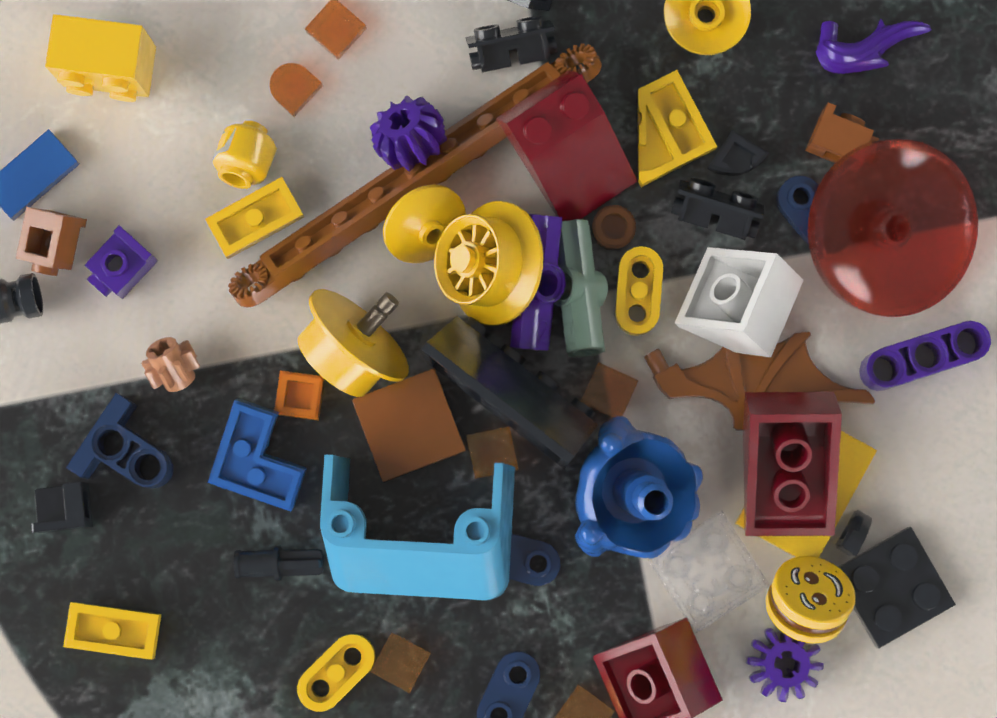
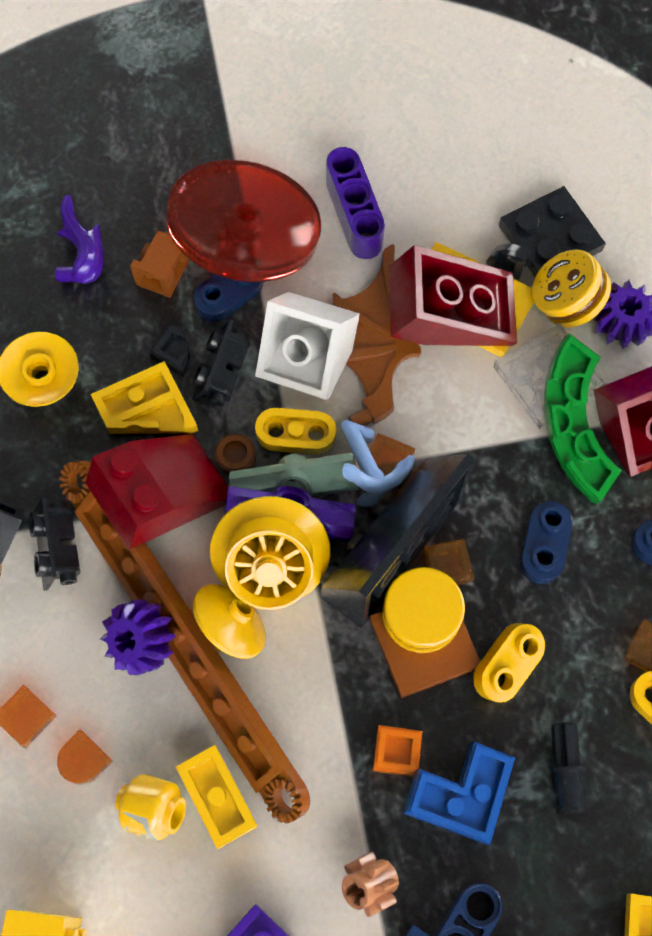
camera: 90 degrees left, 15 degrees down
(350, 344) = (352, 690): yellow piece -> none
(386, 508) = (509, 658): none -> yellow plate
(435, 420) = (423, 609): none -> yellow head
(467, 569) = (567, 680): dark azure windscreen -> none
(572, 371) = (370, 476): none -> light blue piece
(635, 493) = (488, 423): blue piece -> none
(649, 586) = (567, 420): none -> green tile

